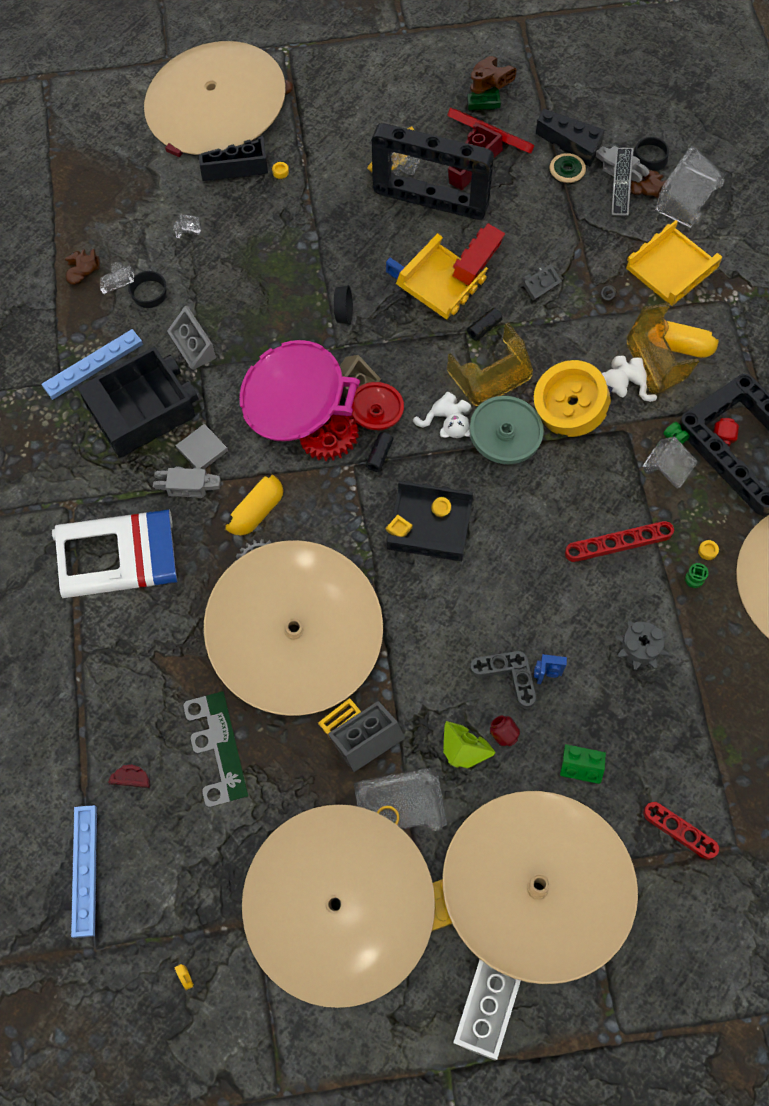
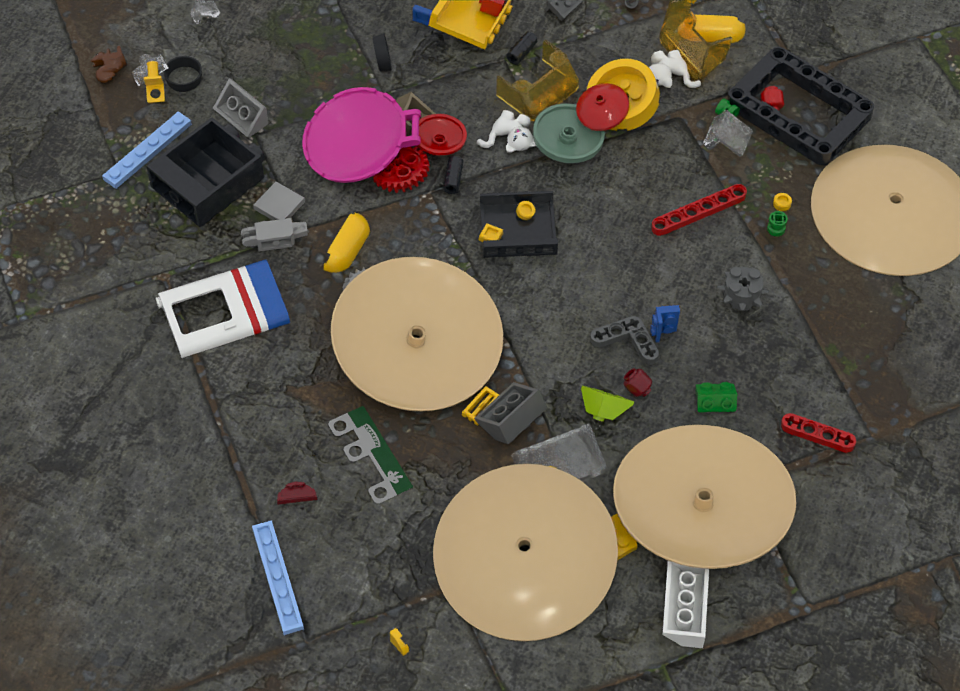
camera: 15 degrees left, 10 degrees down
(116, 294) = (153, 82): none -> yellow bracket
(550, 417) = (606, 113): none -> red dish

